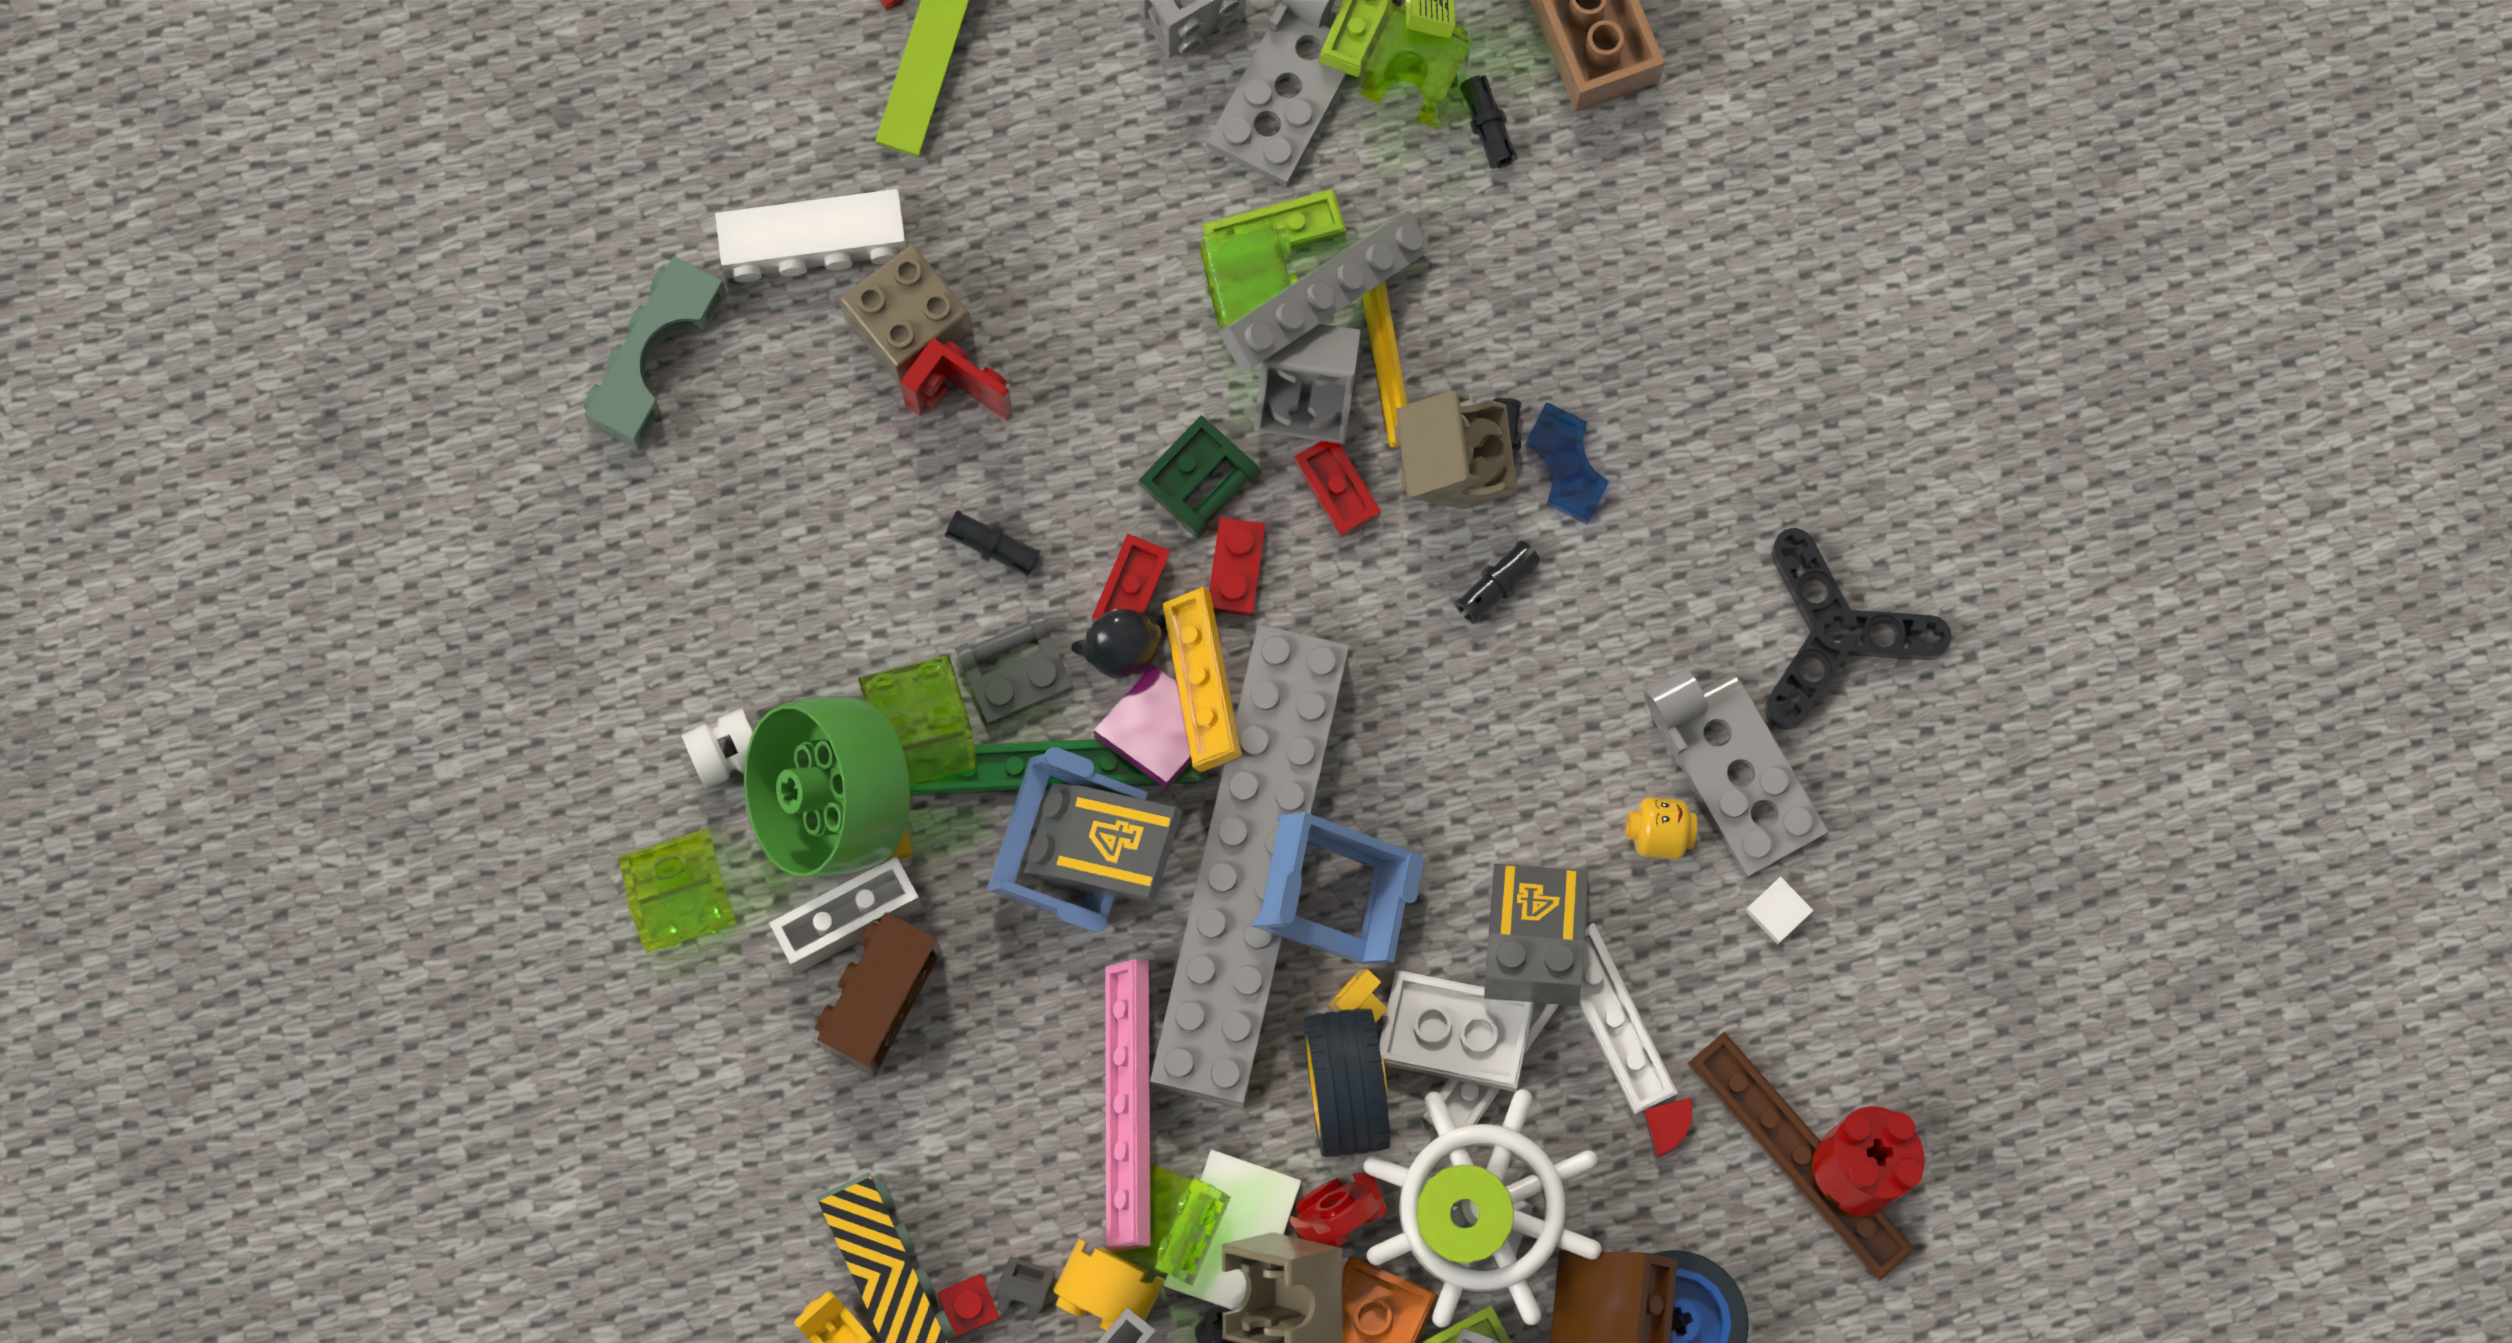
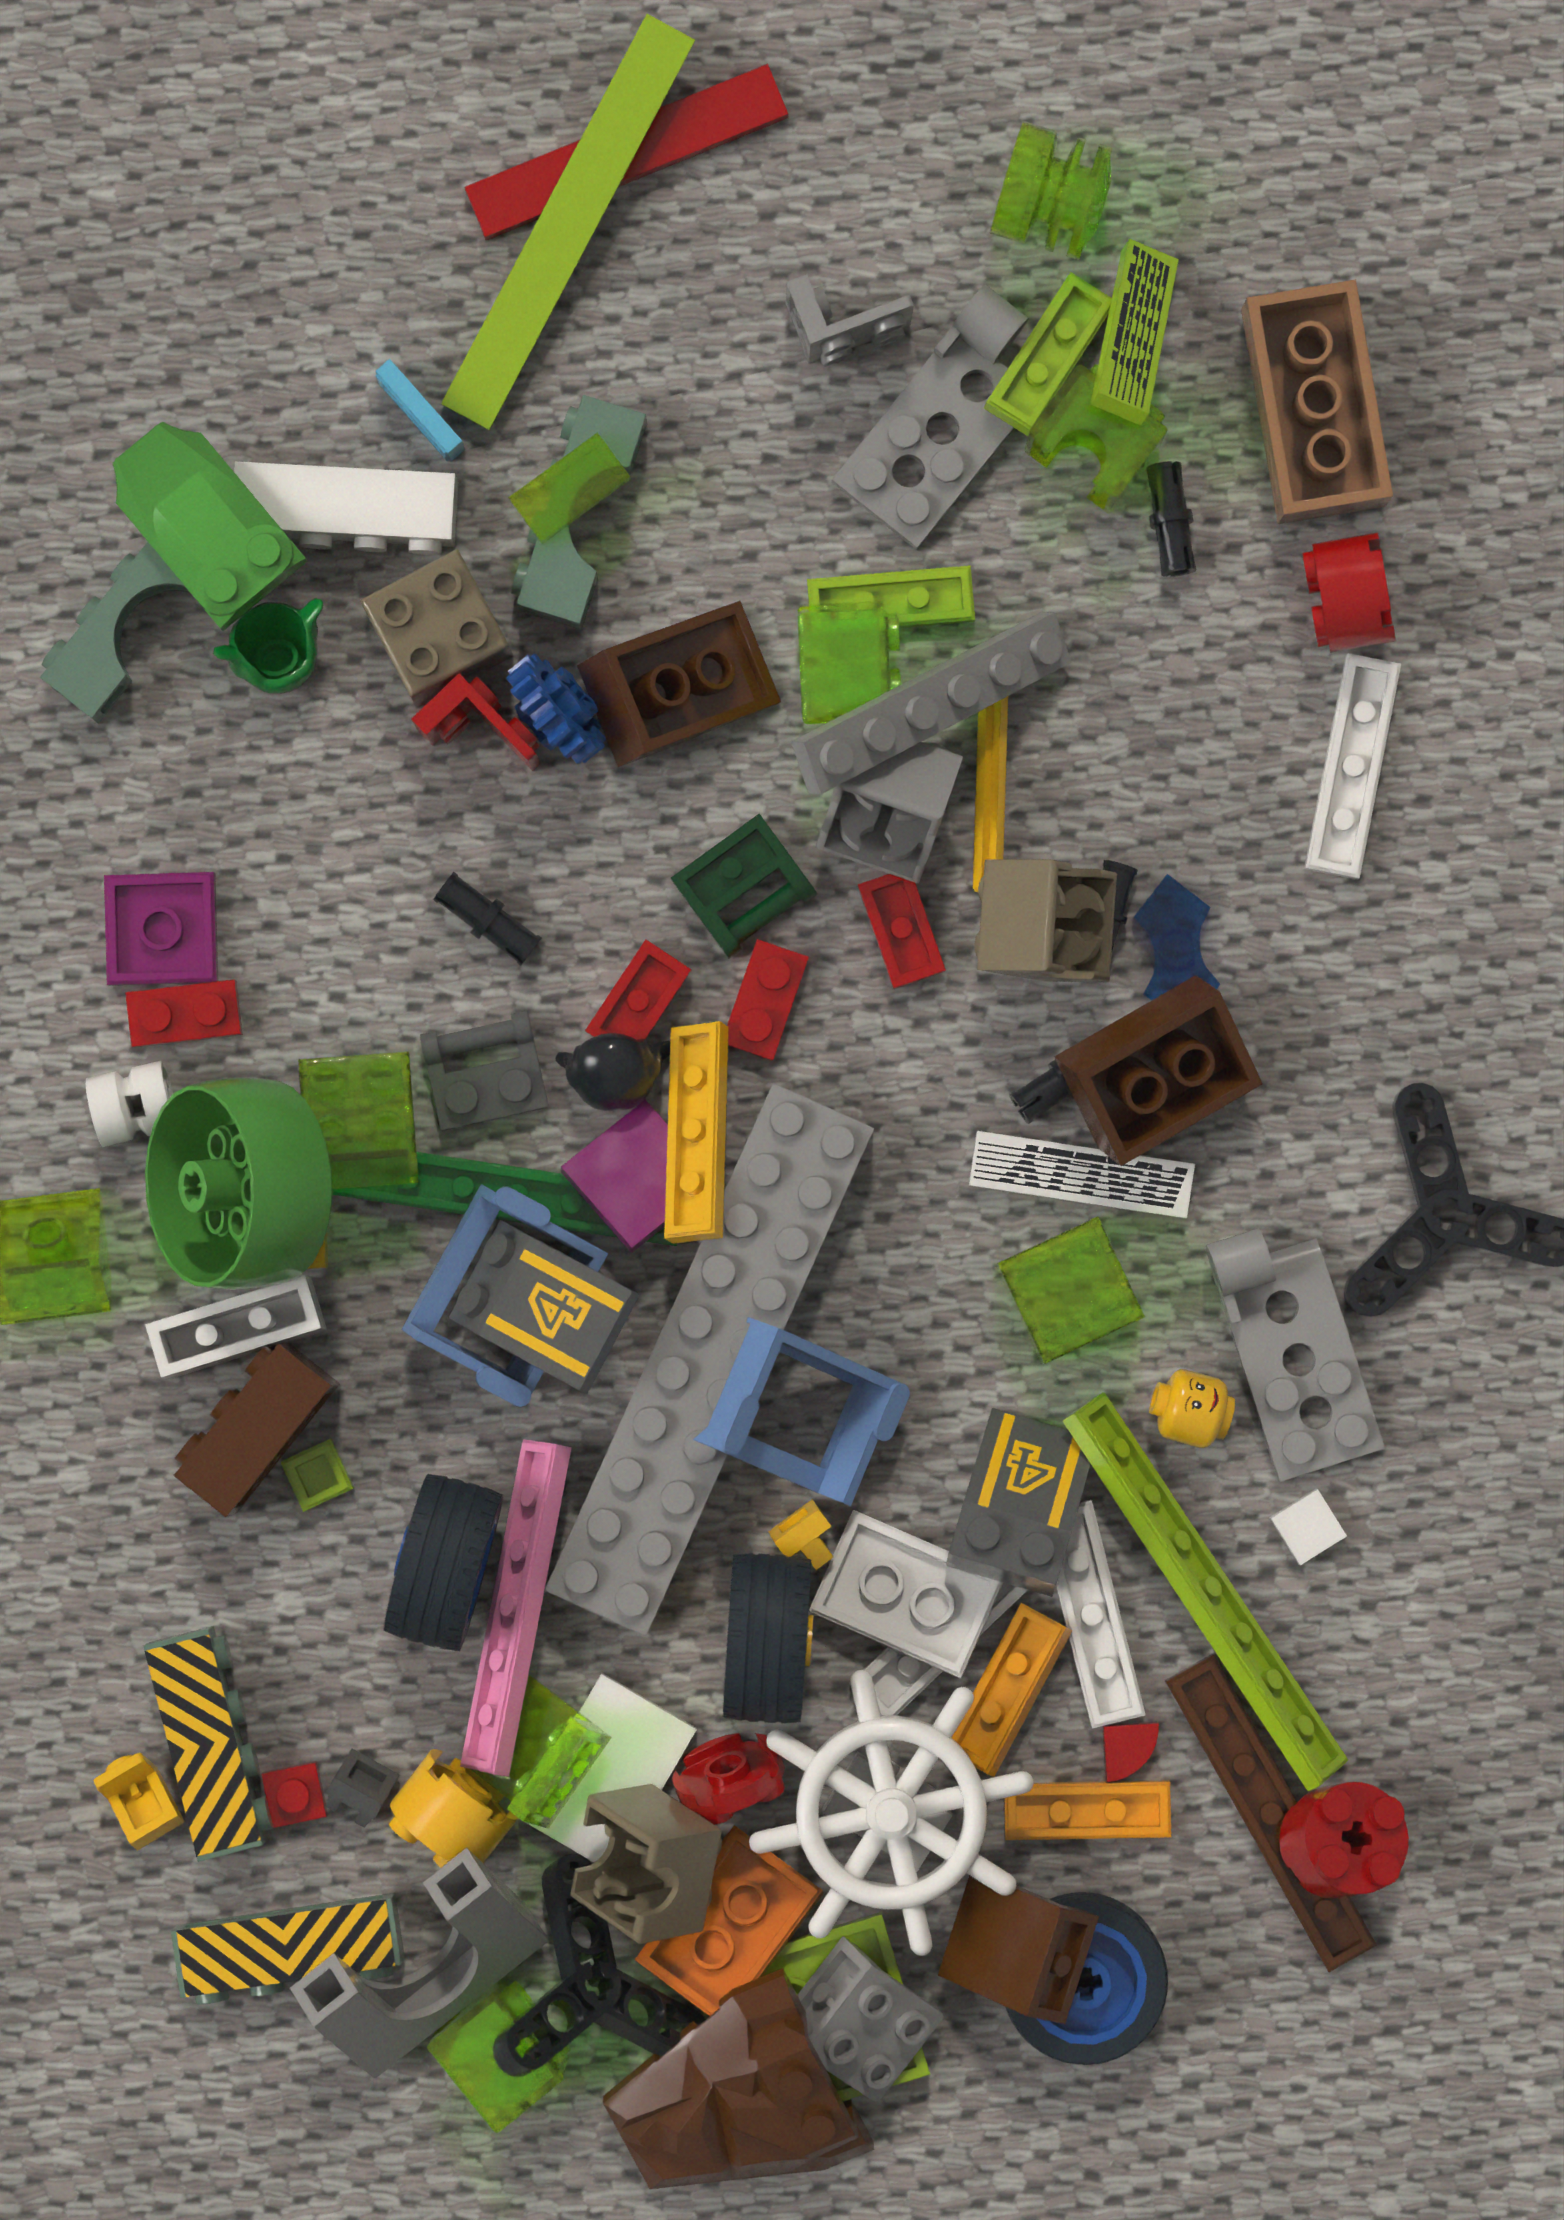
camera: 15 degrees right, 10 degrees up
(698, 263) = (203, 521): none -> bright green slope
(721, 604) = (161, 928): none -> magenta tile
(753, 670) = (183, 1013): none -> red plate
(774, 355) = (274, 646): none -> green hair
(859, 149) = (419, 411): none -> medium azure tile
(937, 1030) = (317, 1475): none -> lime tile
(994, 181) = (569, 488): none -> clear neon green tile
(1012, 150) = (557, 580): none -> sand green arch
(1017, 358) = (556, 708): none -> blue gear
(1059, 1073) = (442, 1562): none -> black wheel
(1112, 324) = (678, 683): none -> reddish brown slope
(1436, 1218) = (841, 1843): lime tile -> none
(1527, 658) = (1080, 1175): none -> white tile
(1539, 748) = (1069, 1290): none -> clear neon green piece
(1560, 1087) = (1010, 1687): none -> light orange tile
(1574, 553) = (1158, 1070): none -> reddish brown brick
(1646, 1184) = (1090, 1811): none -> light orange tile
(1648, 147) = (1351, 593): none -> red brick
(1678, 289) = (1352, 766): none -> white tile
(1706, 979) = (1206, 1591): none -> lime tile

